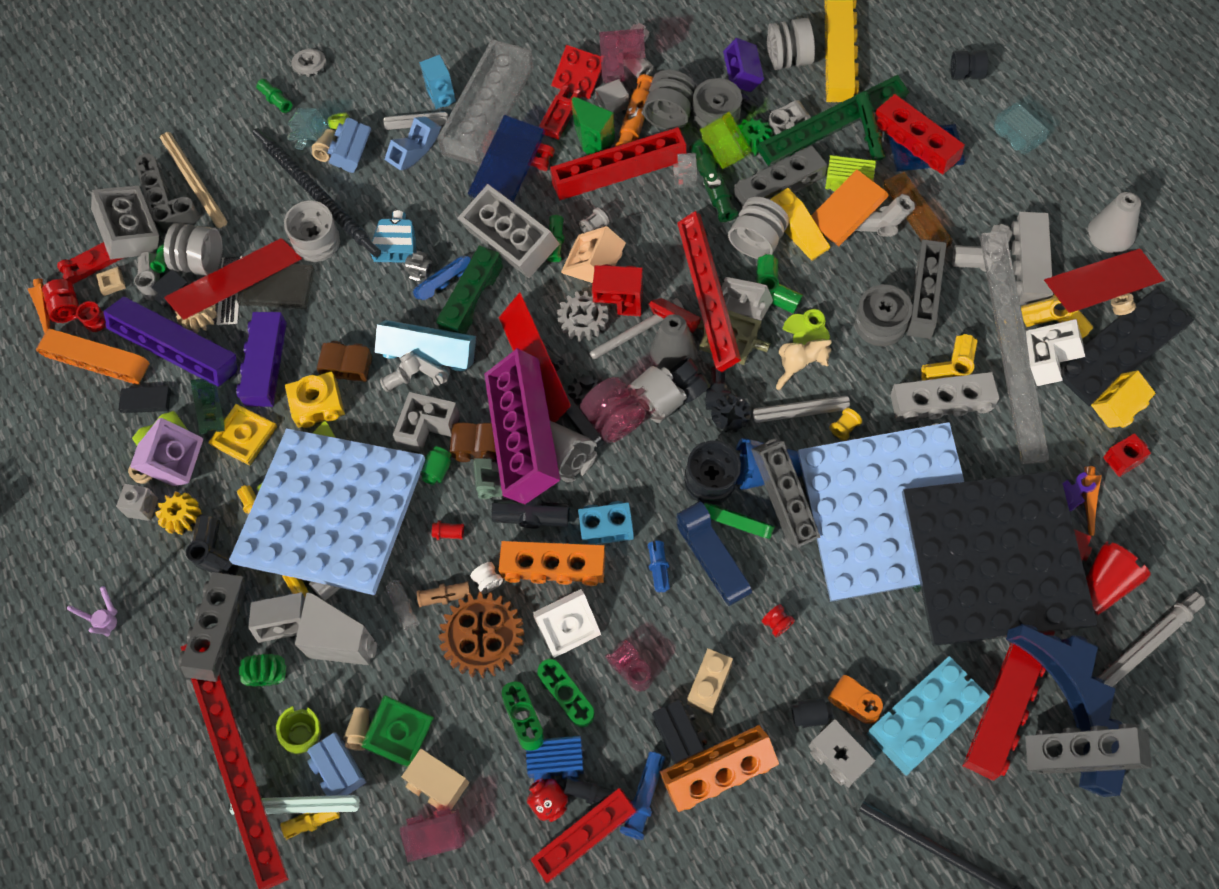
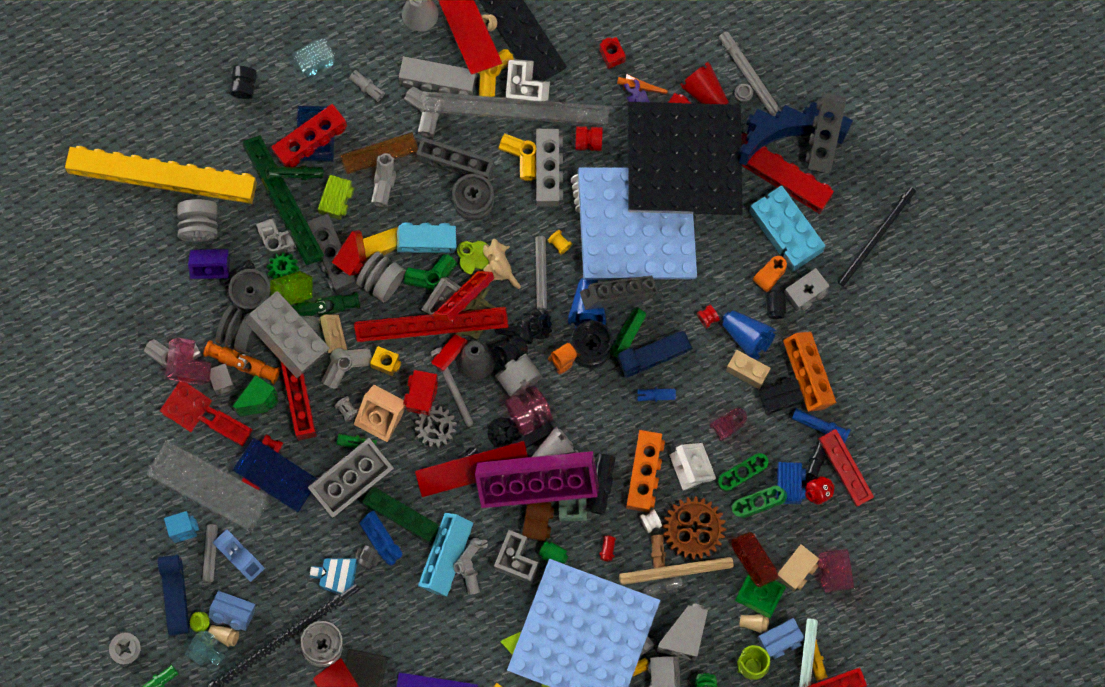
camera: 90 degrees left, 10 degrees up
(326, 406) = (487, 637): yellow brick -> none
(344, 361) = (449, 623): reddish brown brick -> none
(368, 93) = (174, 594): none -> dark blue beam
(421, 617) = (676, 570): none -> tan axle
(441, 717) = (754, 559): none -> clear red beam
(606, 530) = (622, 428): dark azure brick -> none
(653, 214) = (350, 359): none -> light grey piece
(657, 244) = (381, 354): none -> yellow brick
(664, 132) = (286, 334): none -> light grey brick
(682, 196) = (333, 332): none -> tan plate
(686, 439) = (563, 357): none -> orange piece
(754, 319) = (463, 296): none -> red plate
(760, 677) = (748, 333): none -> blue cone
(778, 184) = (352, 254): none -> red slope
(818, 271) = (426, 238): none -> medium azure brick
(848, 207) = (372, 204): orange tile -> none
(997, 439) = (588, 138): none -> red wheel
(1000, 188) = (366, 85): none -> light grey pin
(1119, 636) = (743, 93): none -> light grey plate
(1123, 399) = (569, 43): yellow brick -> none

